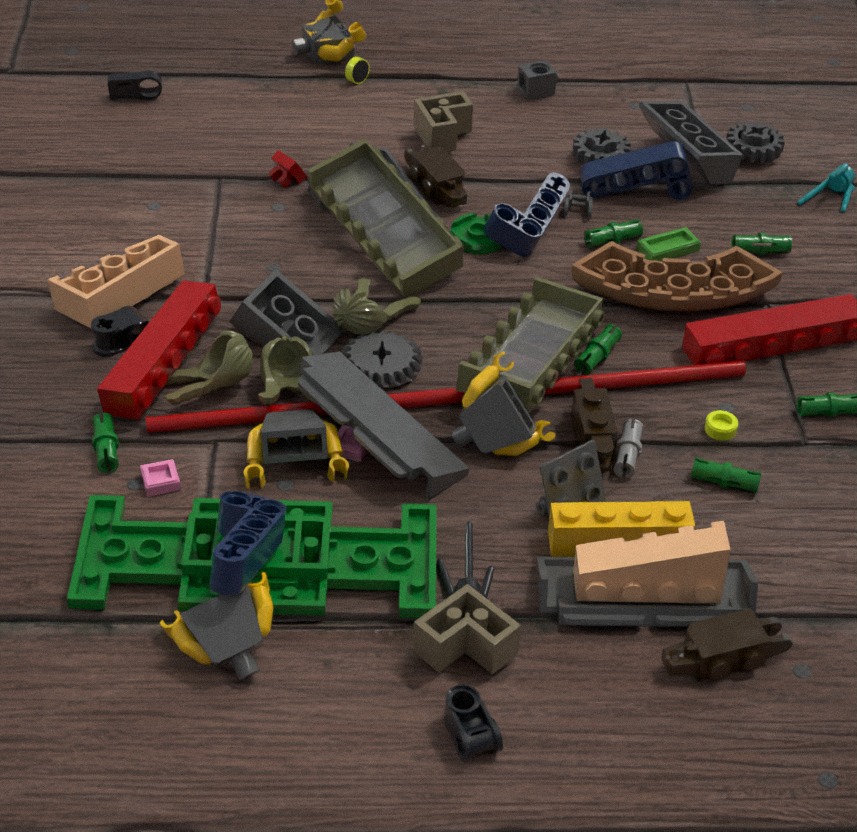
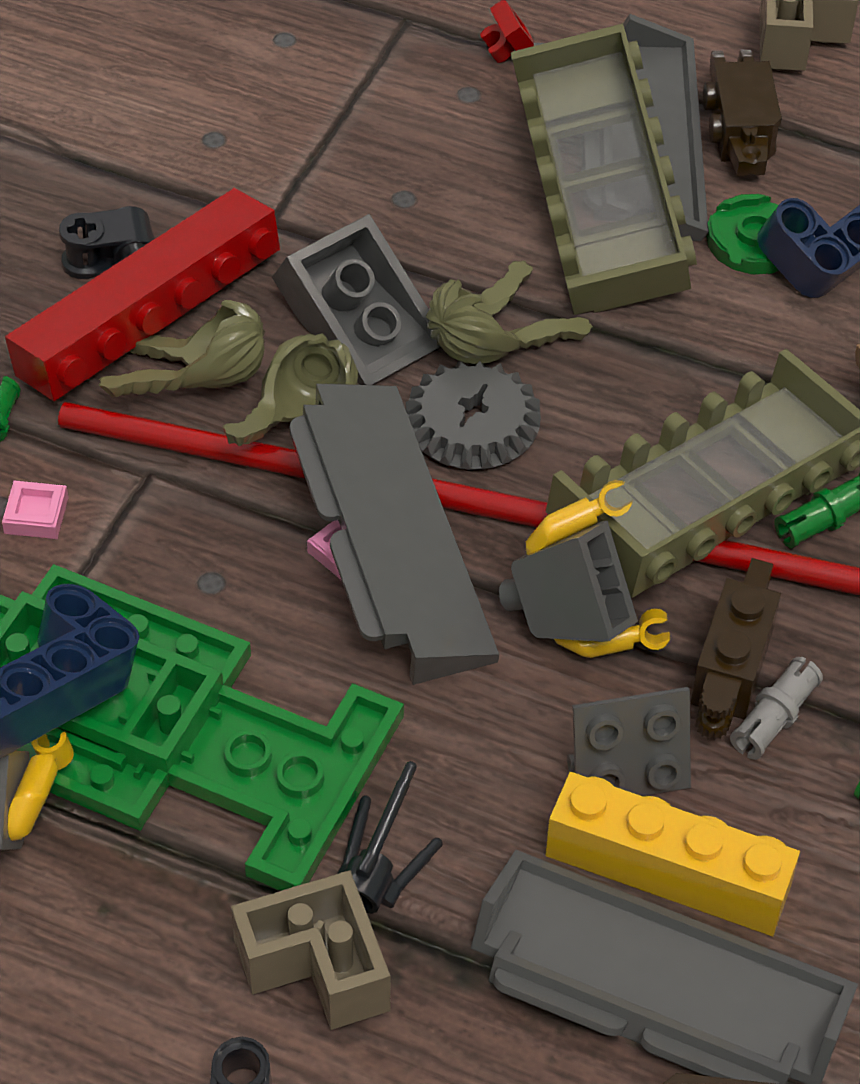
camera: 25 degrees right, 10 degrees up
(117, 280) = (149, 157): light nougat wedge -> none
(291, 438) = (246, 513): dark grey torso -> none
(655, 568) = (672, 950): light nougat wedge -> none

